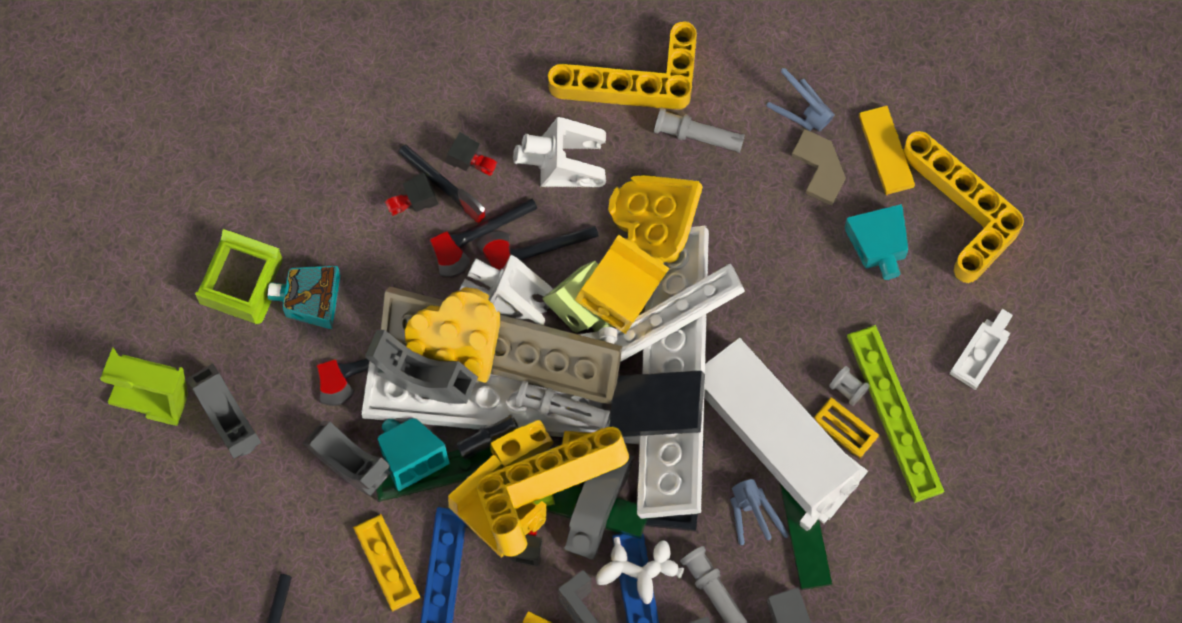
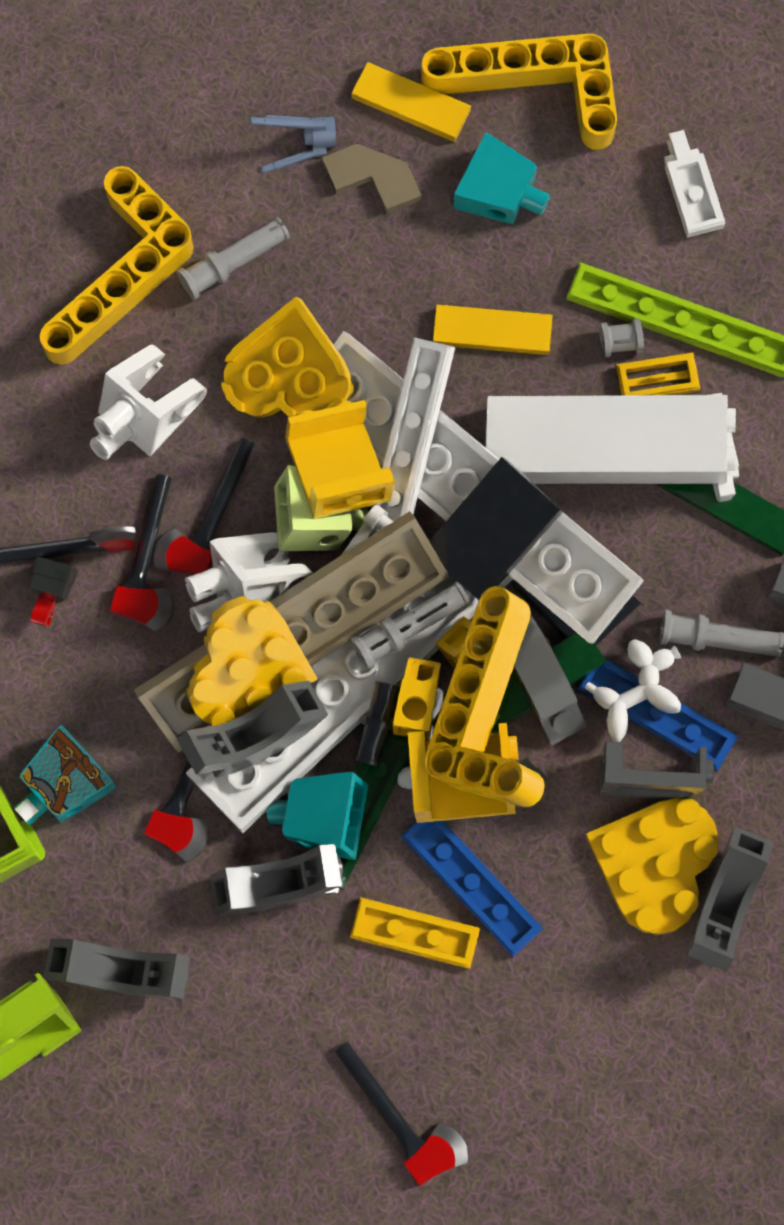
camera: 50 degrees left, 5 degrees up
(464, 153) = (51, 501): pearl dark grey piece -> none
(749, 498) = (651, 525): sand blue plant -> none
(788, 310) = (493, 329): none -> yellow tile

